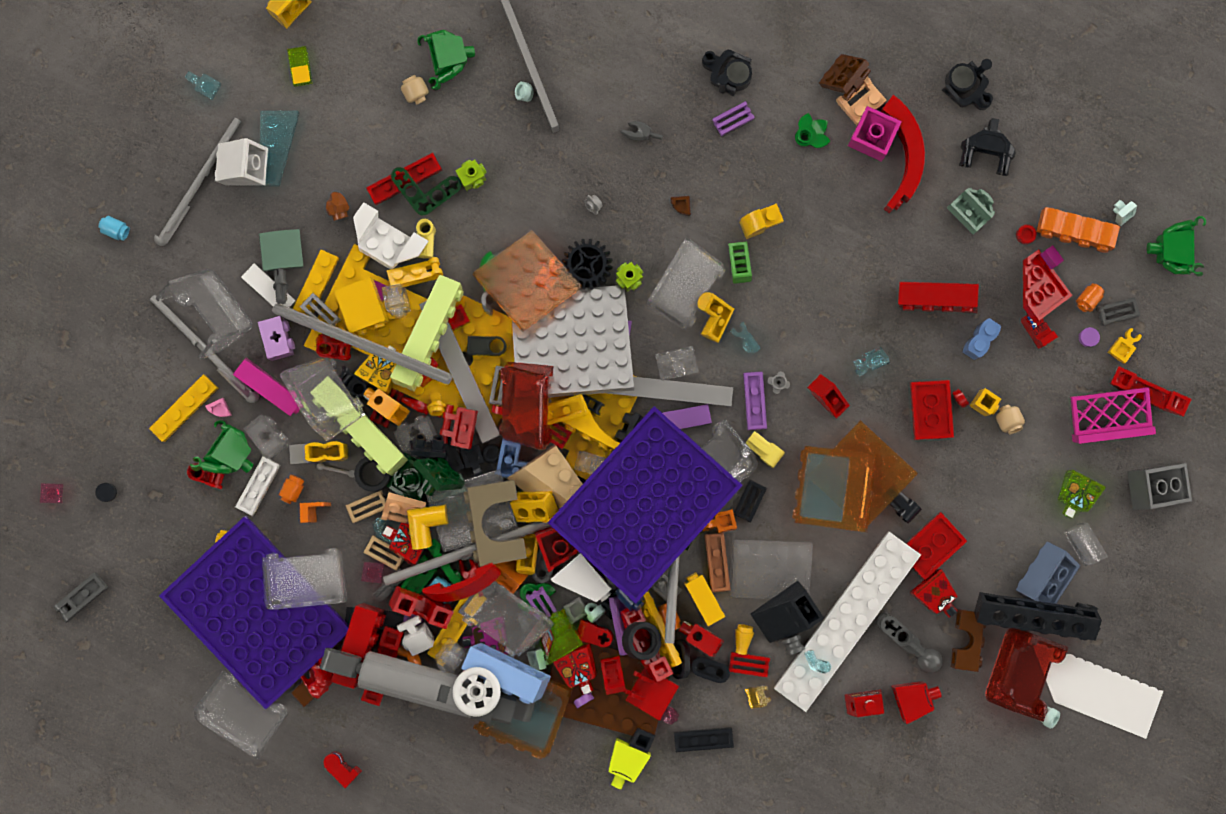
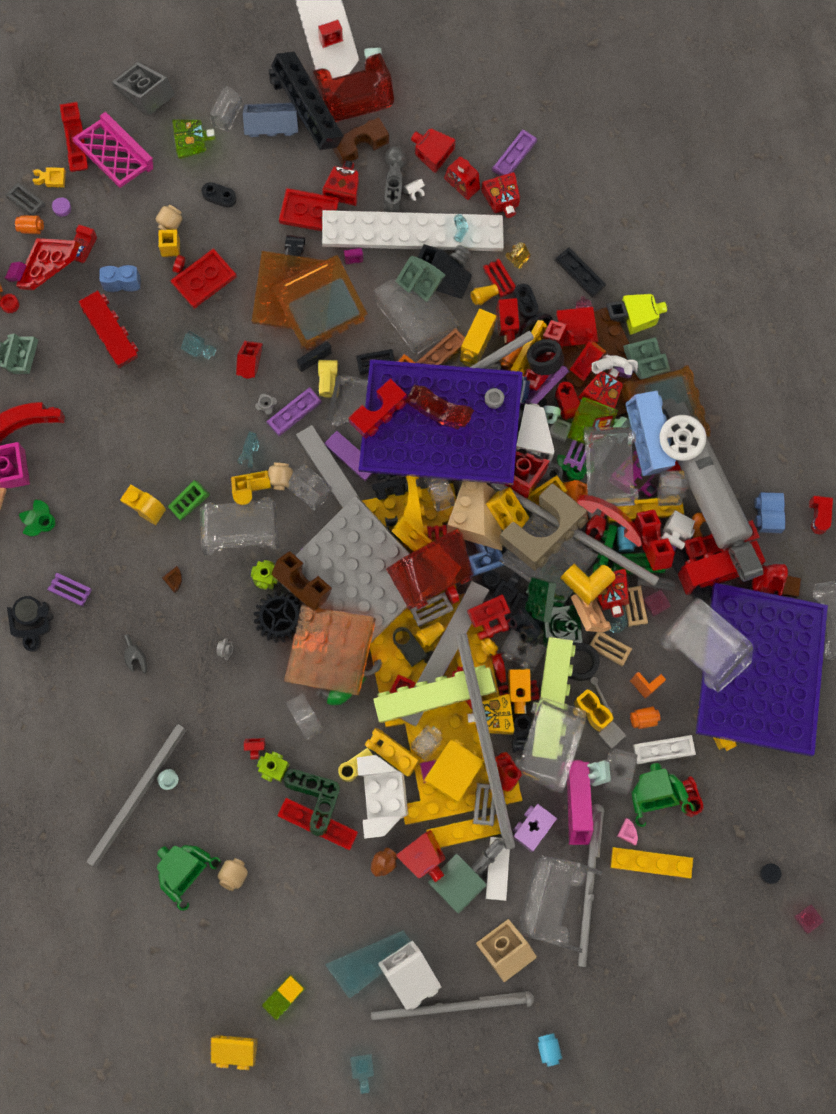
camera: 135 degrees left, 10 degrees down
(205, 249) = (506, 950): none -> tan slope
(276, 418) = (599, 773): none -> light aqua tile
(317, 237) = (423, 856): none -> red torso
(374, 726) = (770, 512): none -> medium blue brick
(482, 368) = (428, 635): none -> yellow cone
(492, 226) = (304, 716): none -> clear brick
(499, 173) = (254, 745): none -> red tile
(581, 731) = (648, 356): none -> sand green slope
(596, 692) = (609, 362): none -> white piece
(609, 292) = (289, 573): none -> reddish brown arch
(629, 561) = (494, 398): none -> light grey tile
(652, 506) = (438, 409): none -> clear red arch
(692, 475) = (367, 421): none -> red arch
(705, 348) = (279, 475): none -> tan head
(791, 451) = (314, 356): none -> black tile
(792, 590) = (420, 277): none -> sand green slope
(825, 727) = (502, 194): none -> red torso
(857, 769) = (515, 153): none -> medium lavender tile
(860, 552) = (353, 256): none -> magenta tile
(889, 653) = (413, 187): none -> white tile
(1005, 479) = (217, 195): none -> black plate
(1097, 692) = (330, 33): none -> red piece

